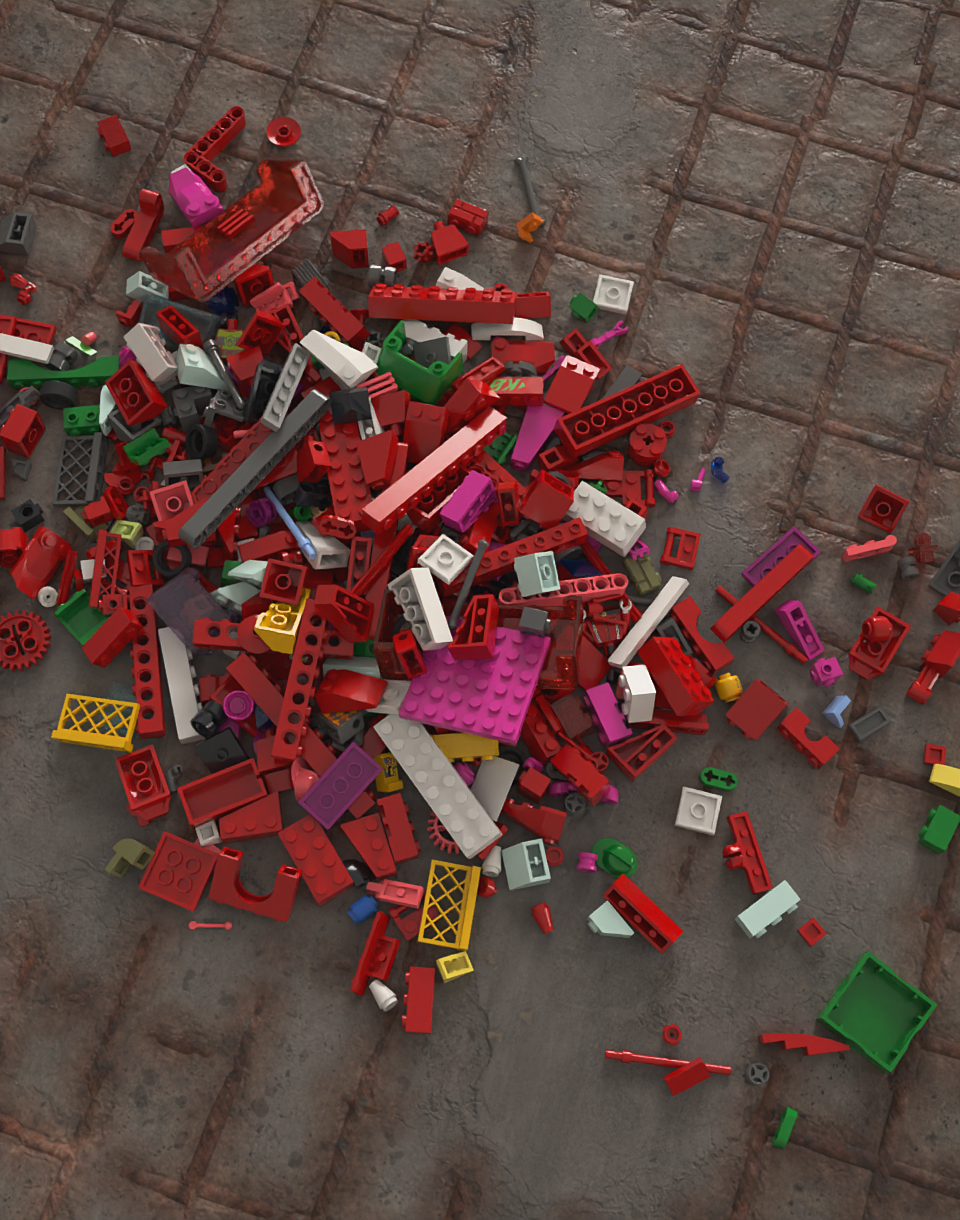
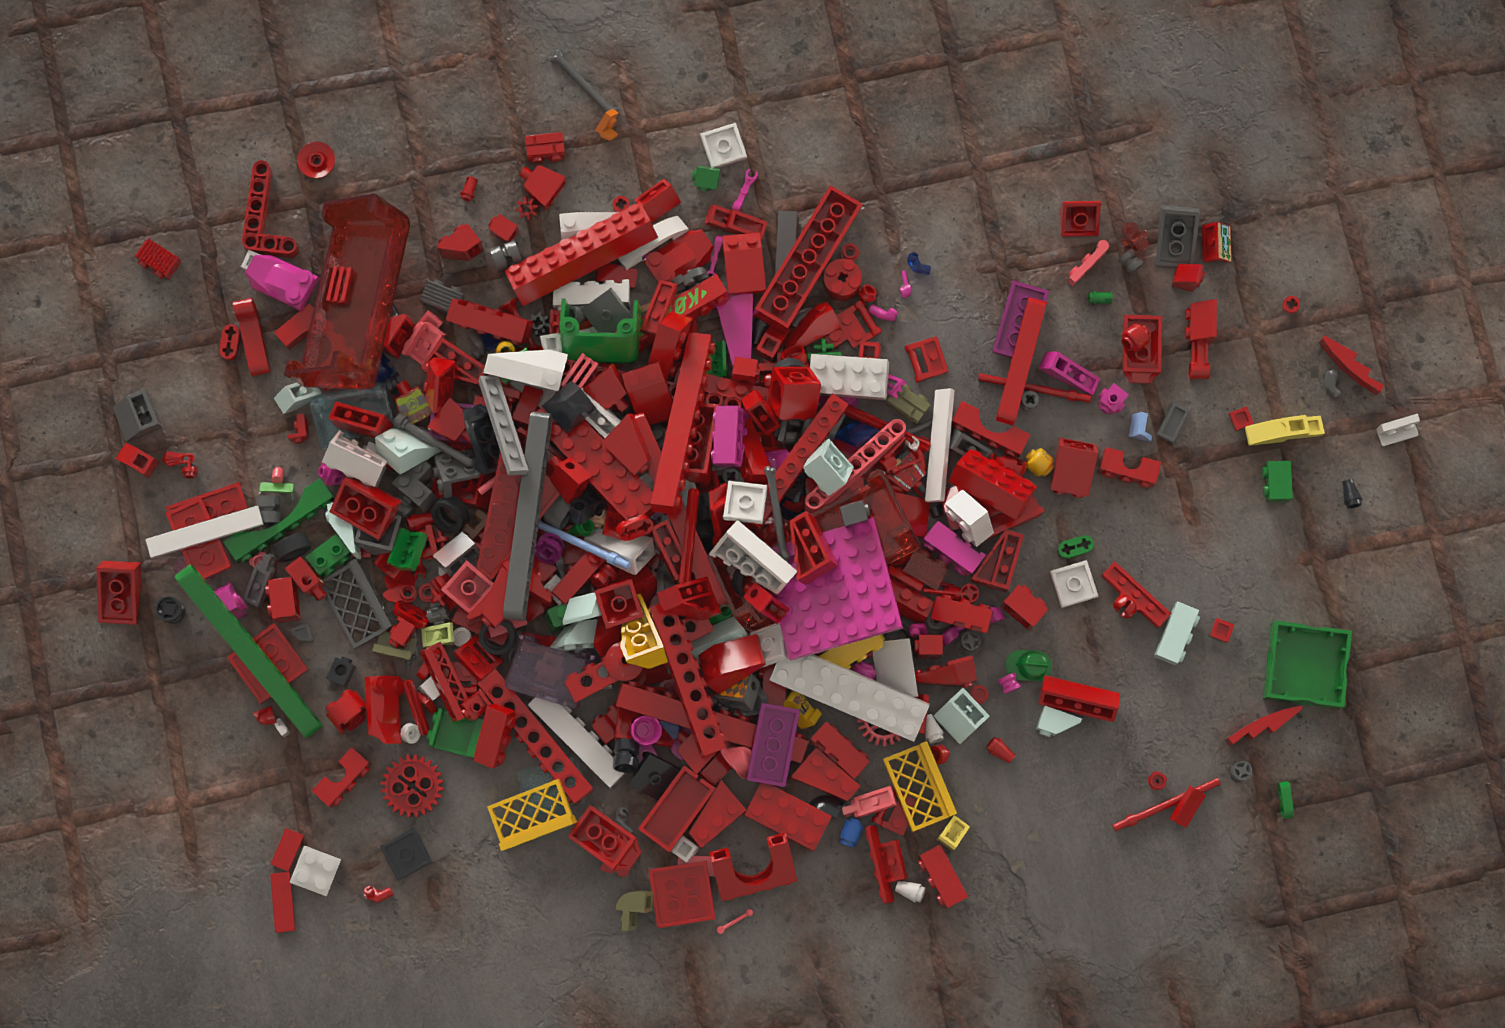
camera: 30 degrees left, 10 degrees up
(51, 423) = (302, 574): none -> red torso
(519, 466) = (746, 371): none -> red brick
(641, 802) = (1024, 607): none -> red brick

